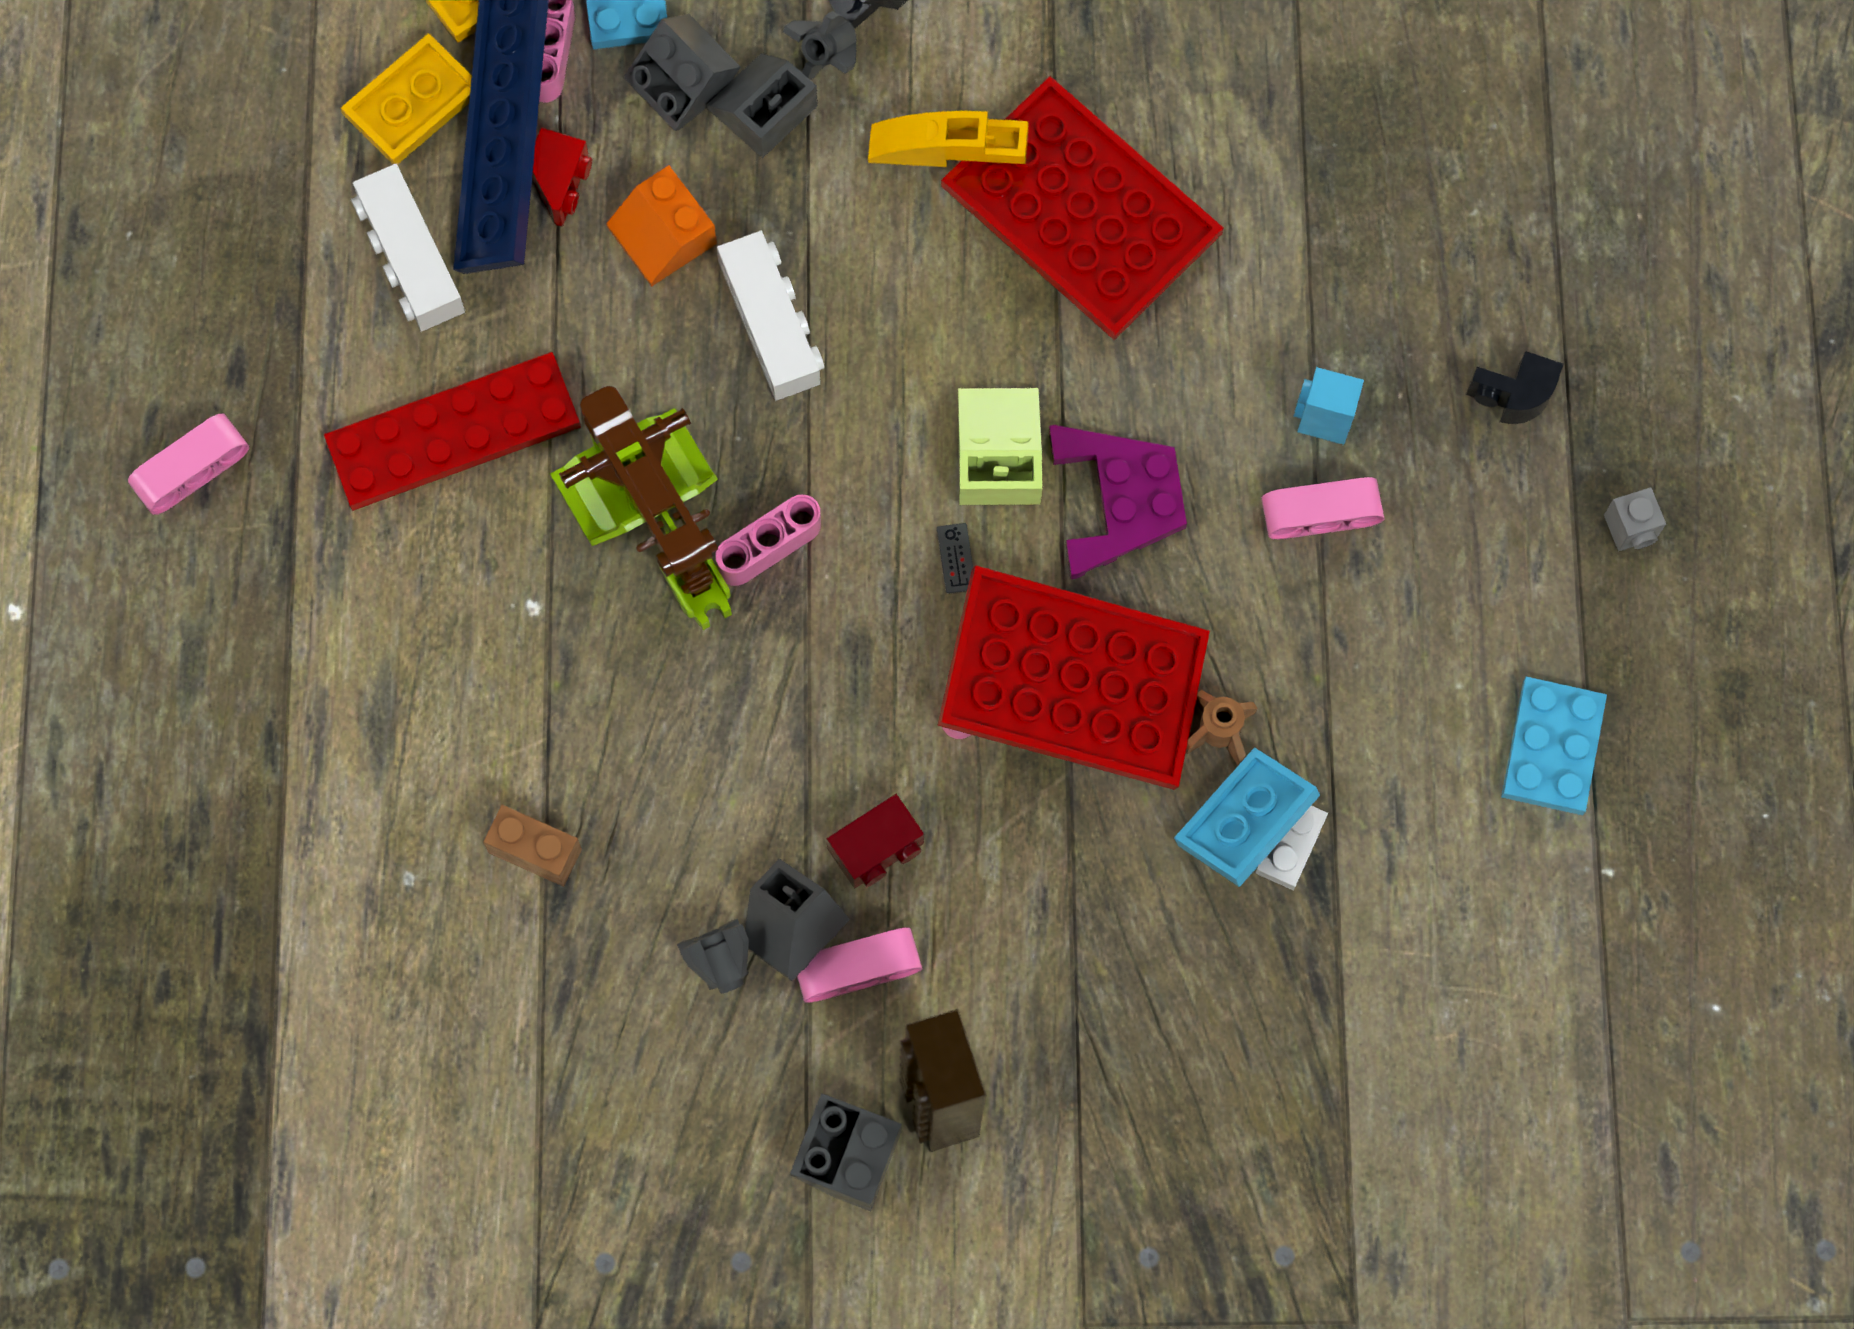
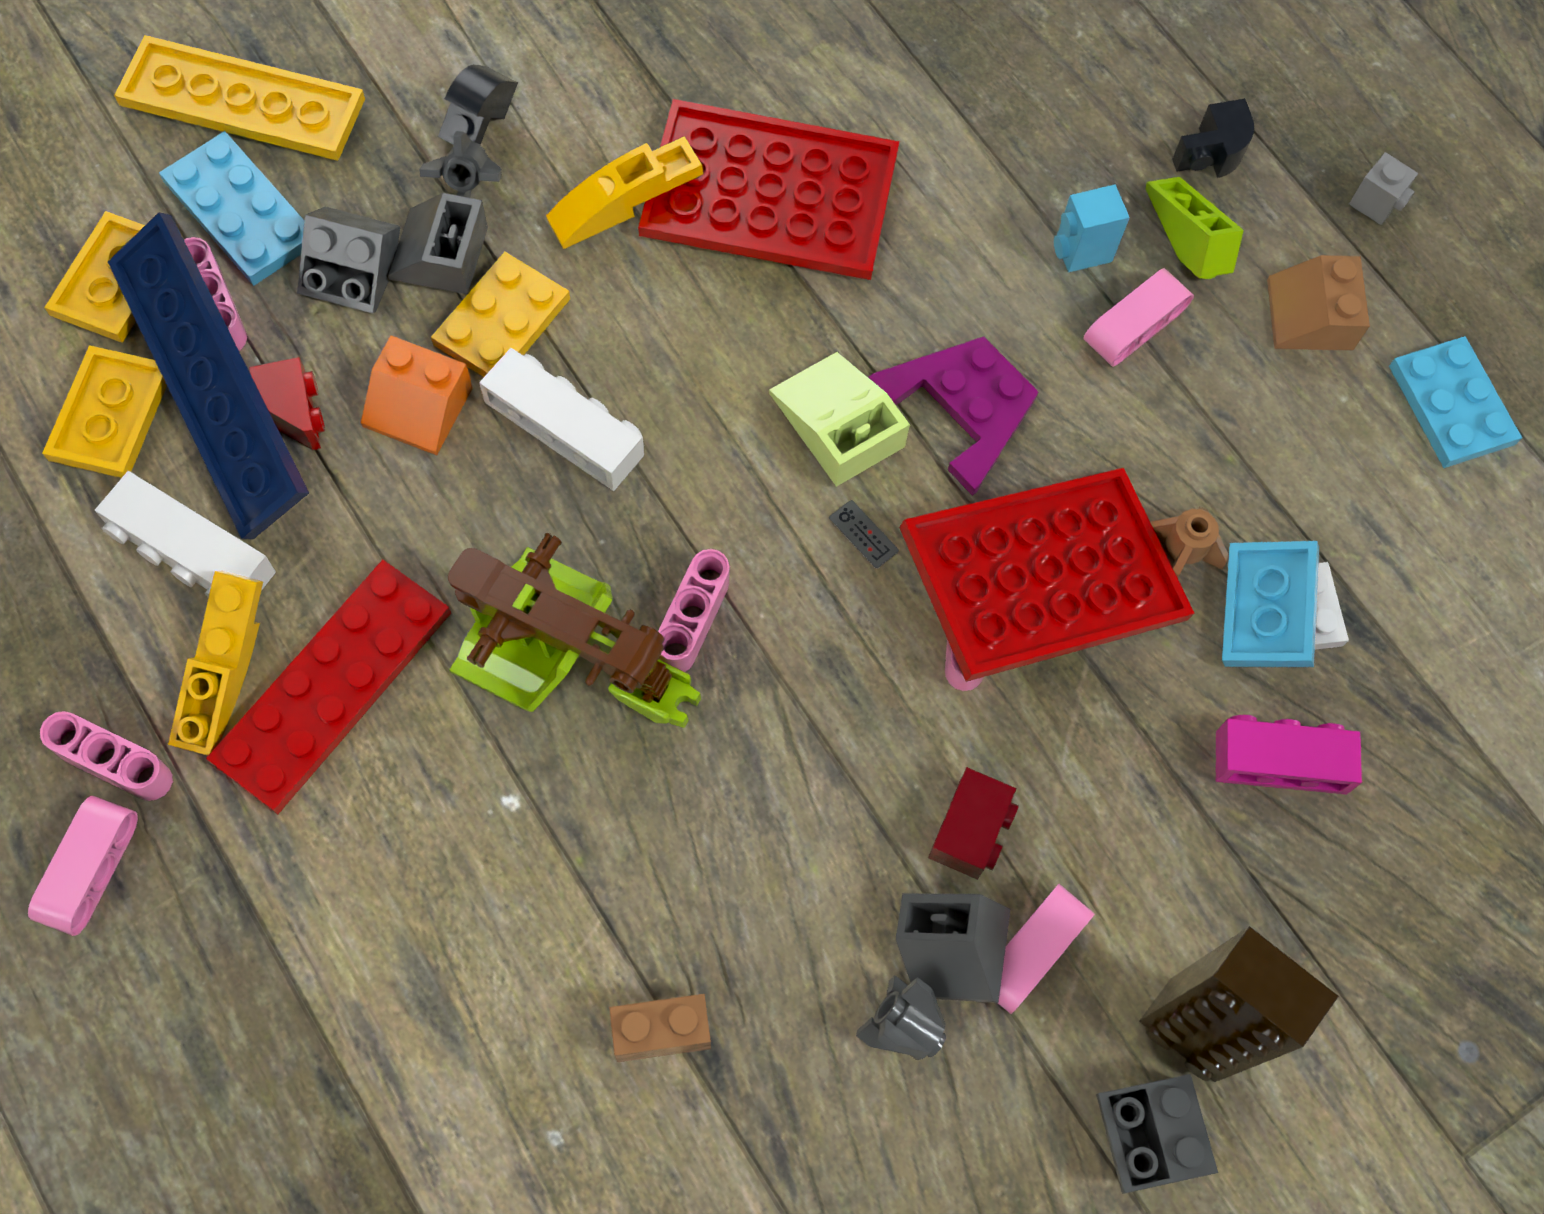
camera: 35 degrees left, 5 degrees down
(247, 371) = (89, 745): none -> bright pink beam
(376, 365) = (220, 663): none -> yellow slope
(778, 193) = (500, 313): none -> yellow plate
(1170, 944) = (1288, 755): none -> dark pink brick
(1433, 455) = (1196, 228): none -> lime slope
(1491, 589) = (1319, 304): none -> medium nougat slope

